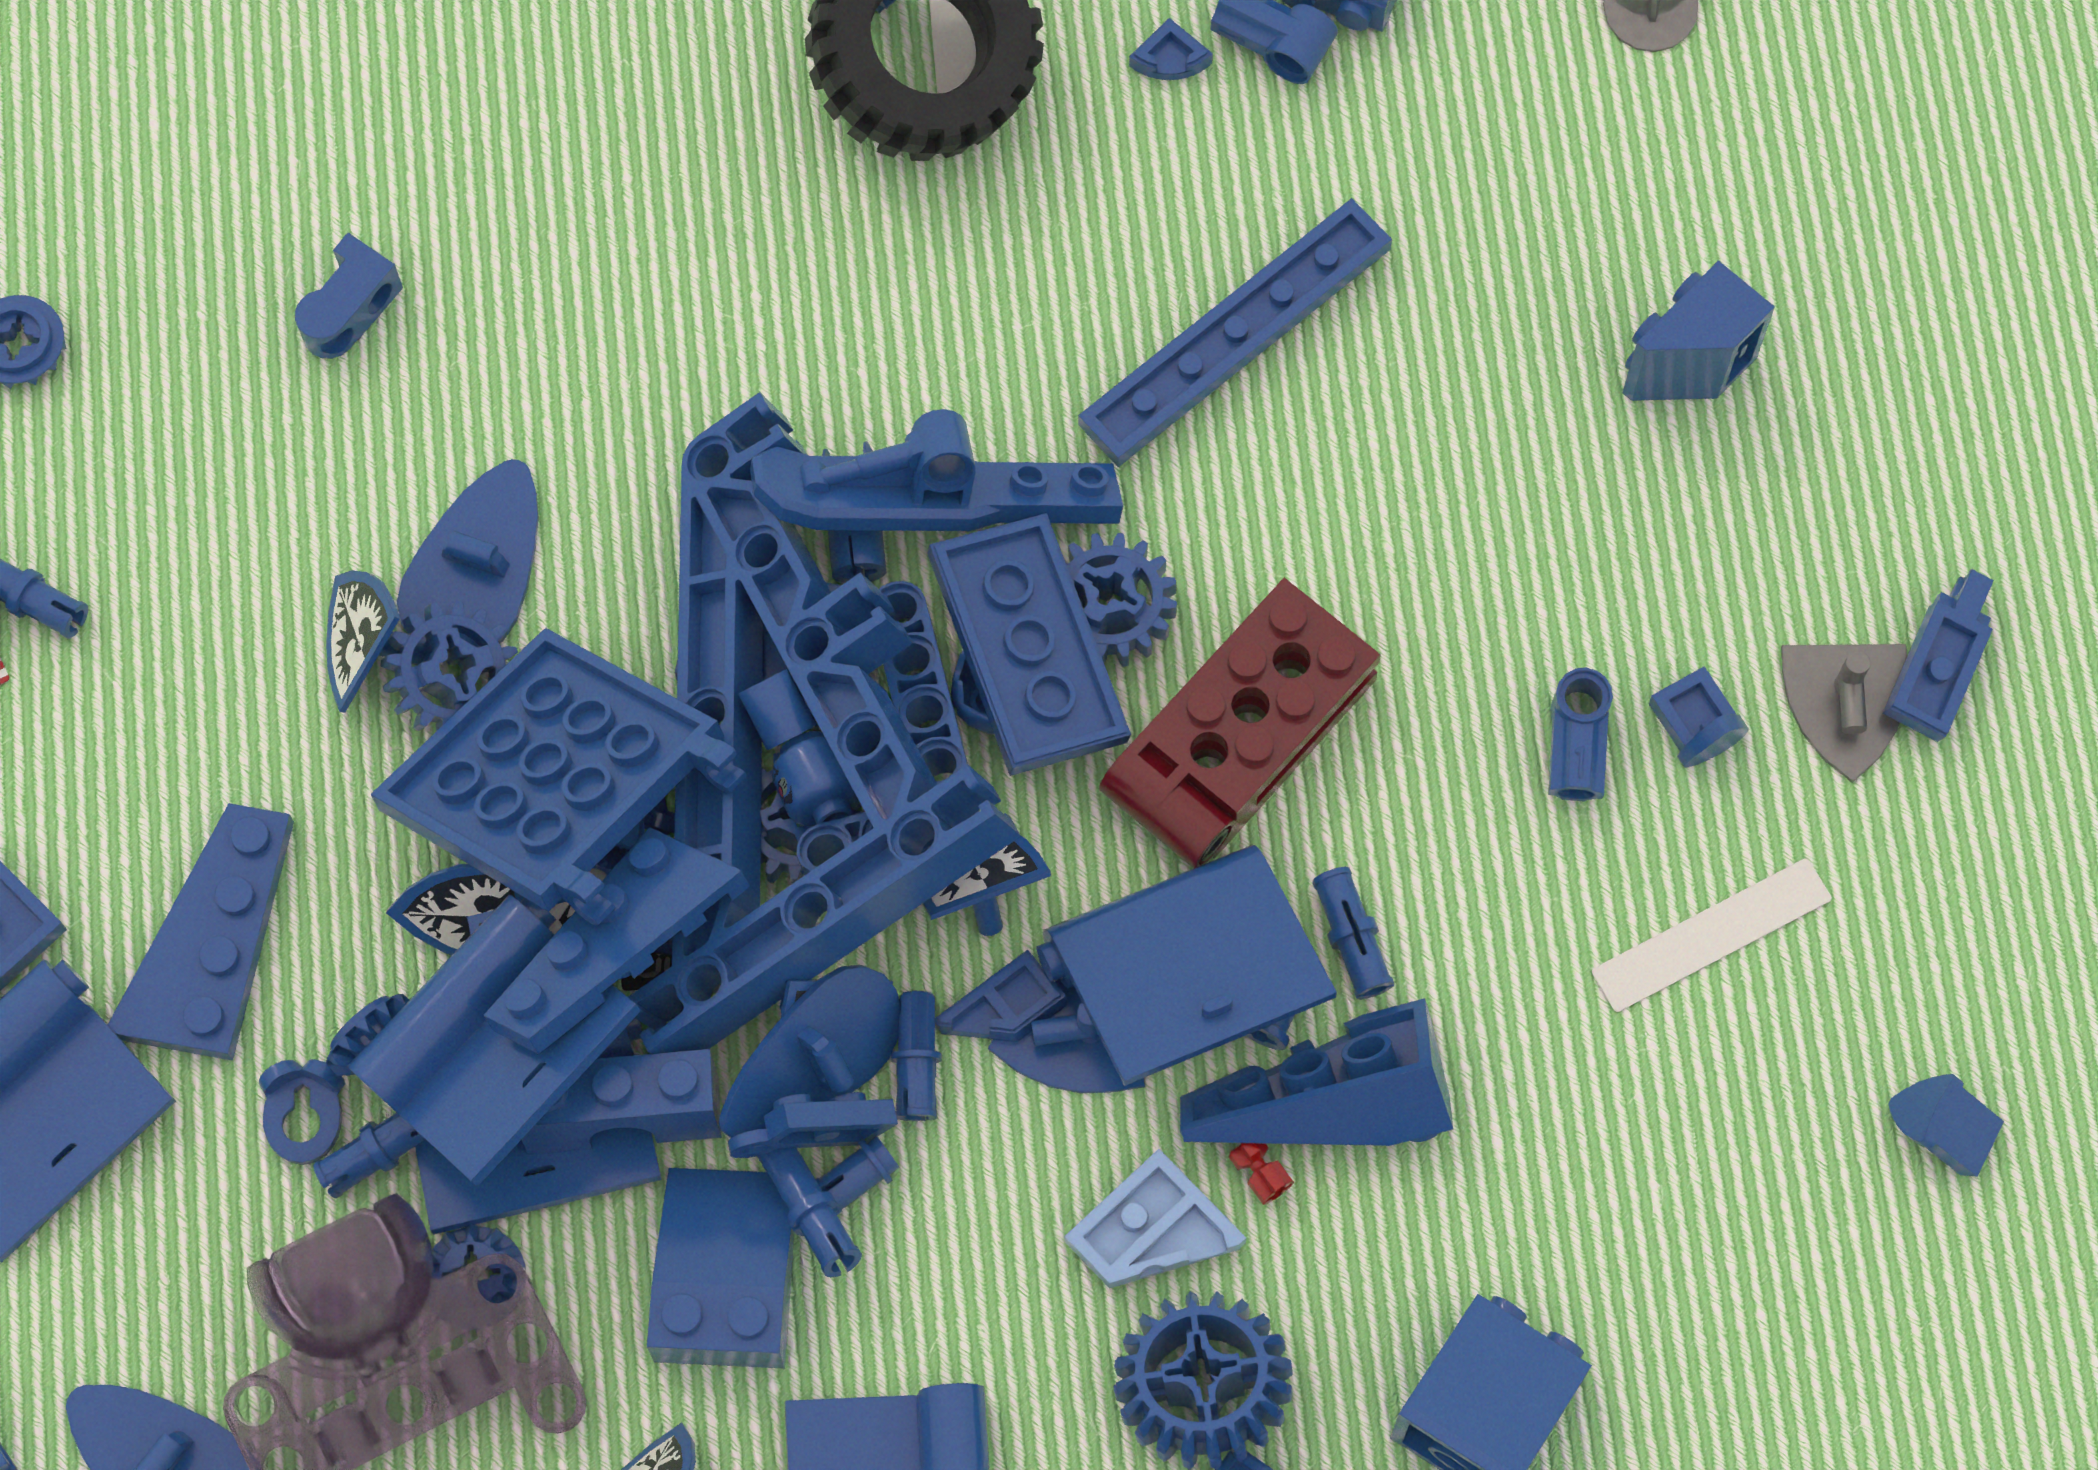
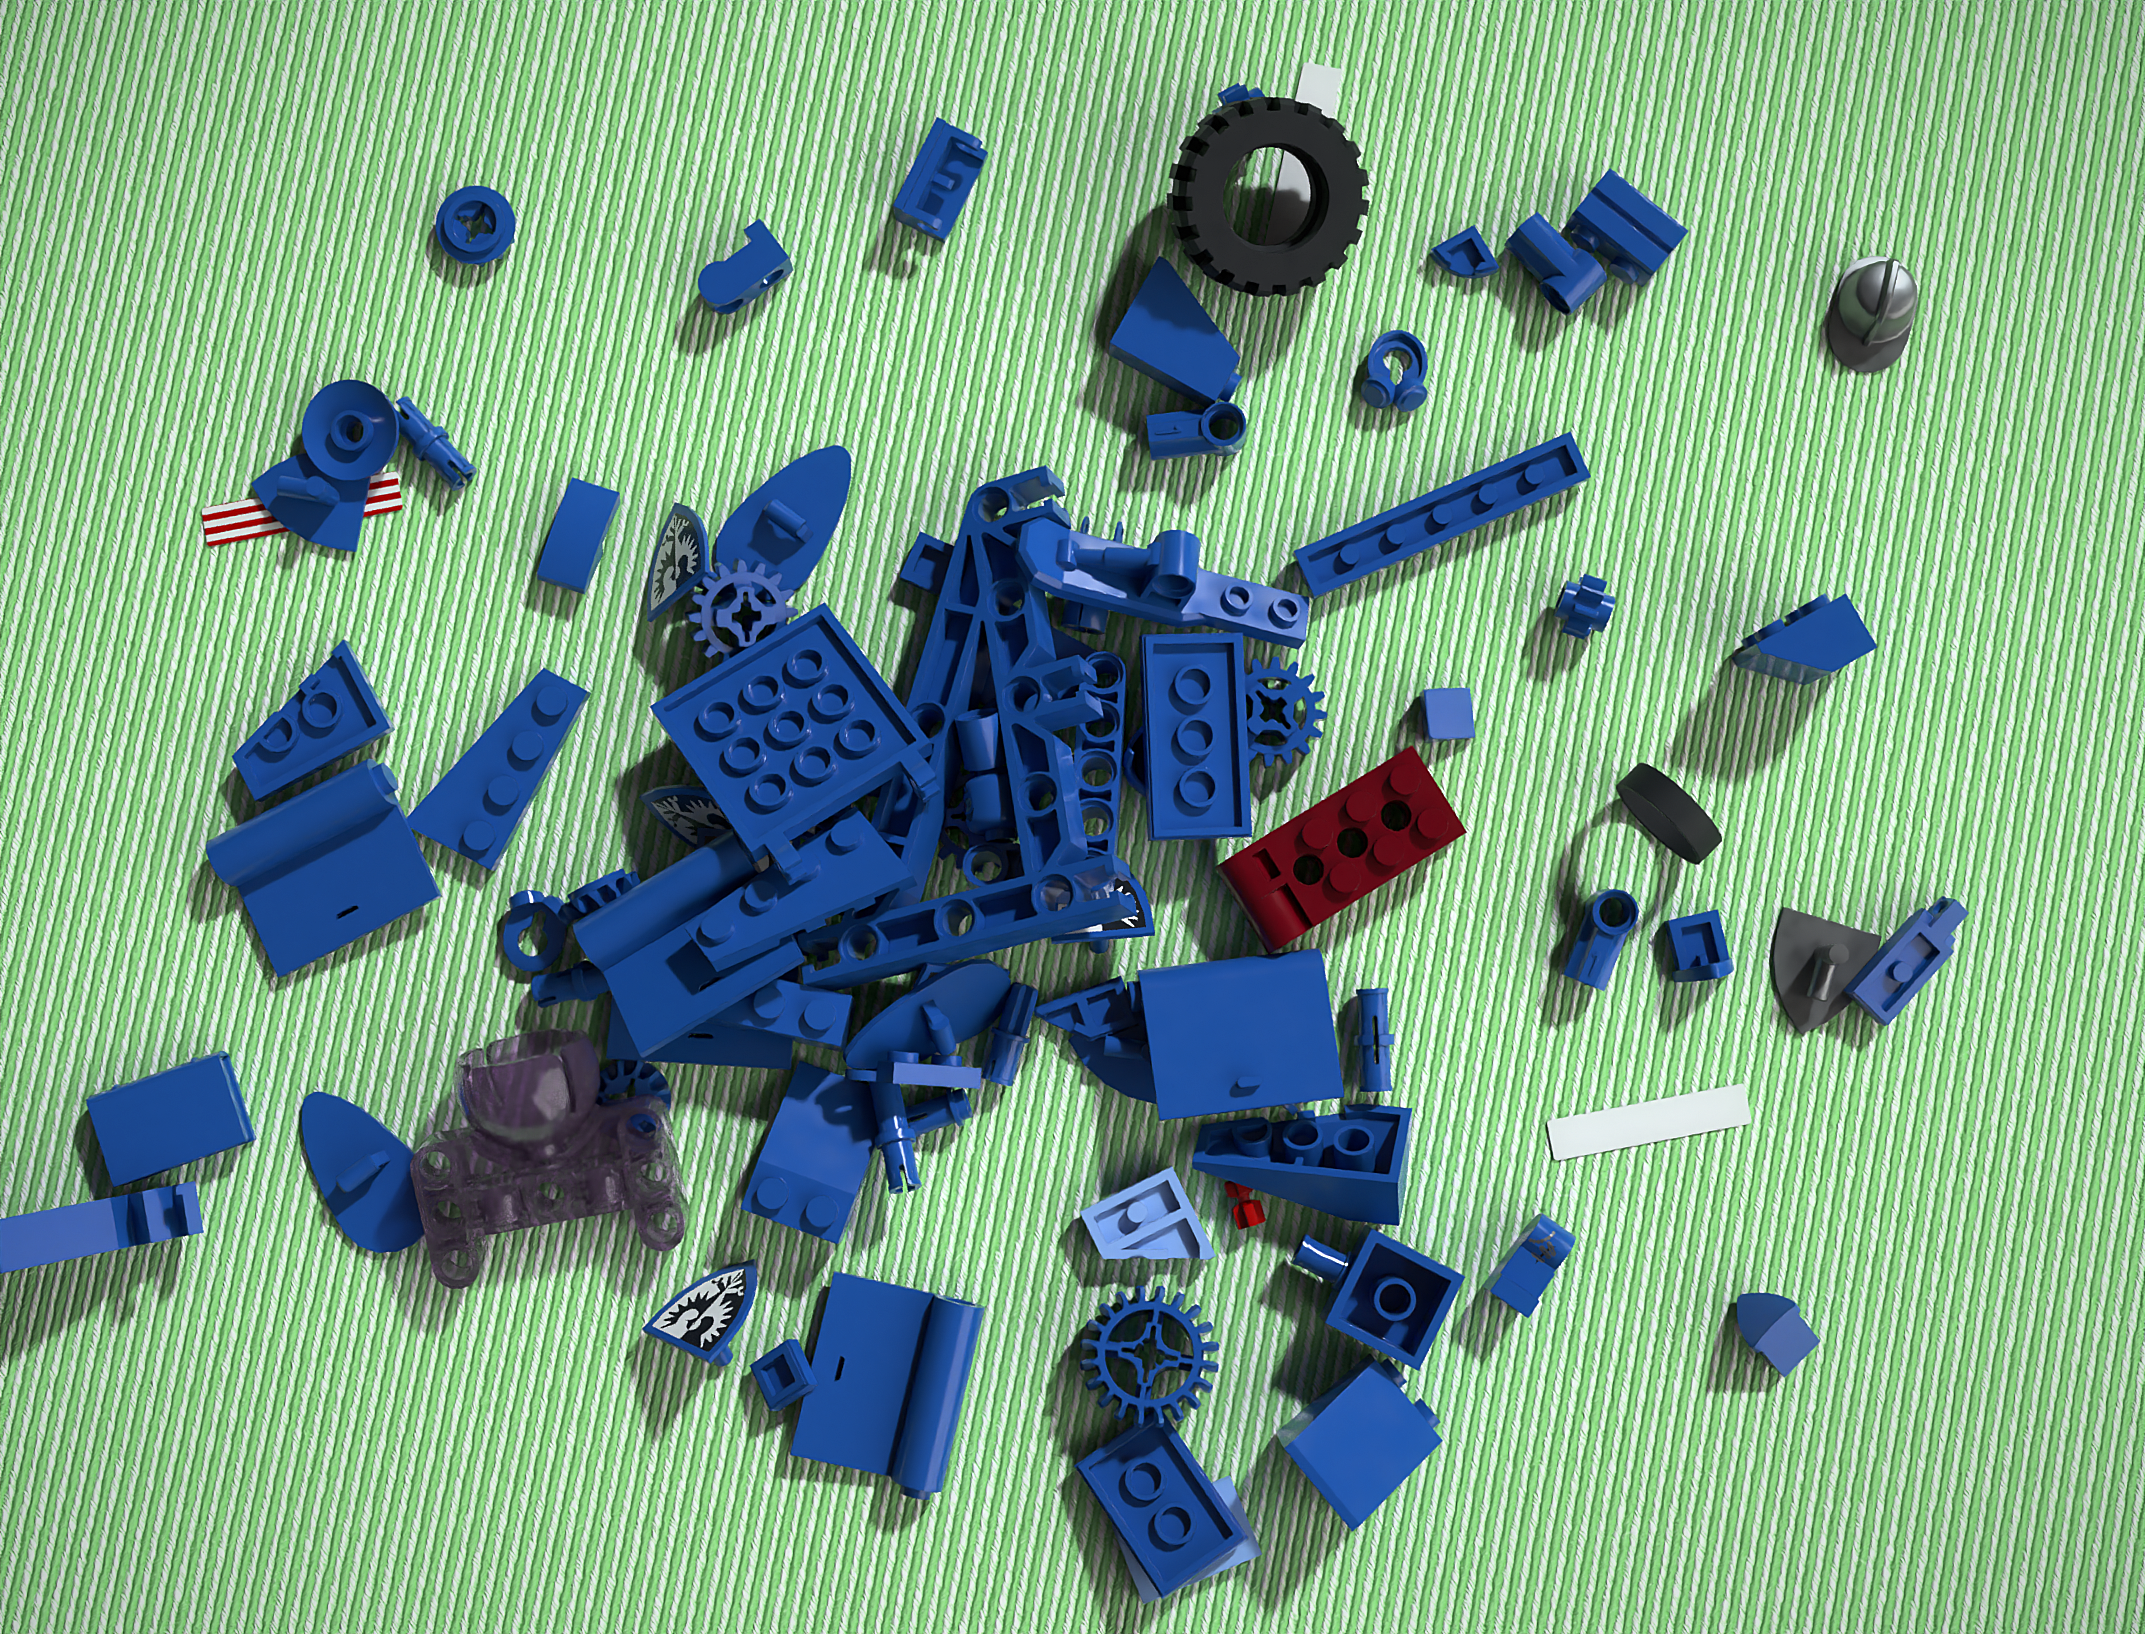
camera: 15 degrees right, 15 degrees up
(230, 644) = (578, 535): none -> blue slope
(545, 141) = (940, 181): none -> blue hinge
(654, 558) = (927, 564): none -> blue tile
(870, 232) = (1176, 340): none -> blue slope
(920, 326) = (1189, 432): none -> blue piece
(1122, 219) = (1379, 389): none -> blue piece
(1314, 546) = (1446, 714): none -> slope
(1432, 379) = (1584, 606): none -> blue gear
(1463, 1217) = (1383, 1293): none -> blue brick
(1619, 547) = (1669, 813): none -> black tyre
(1627, 1137) = (1530, 1264): none -> blue leg

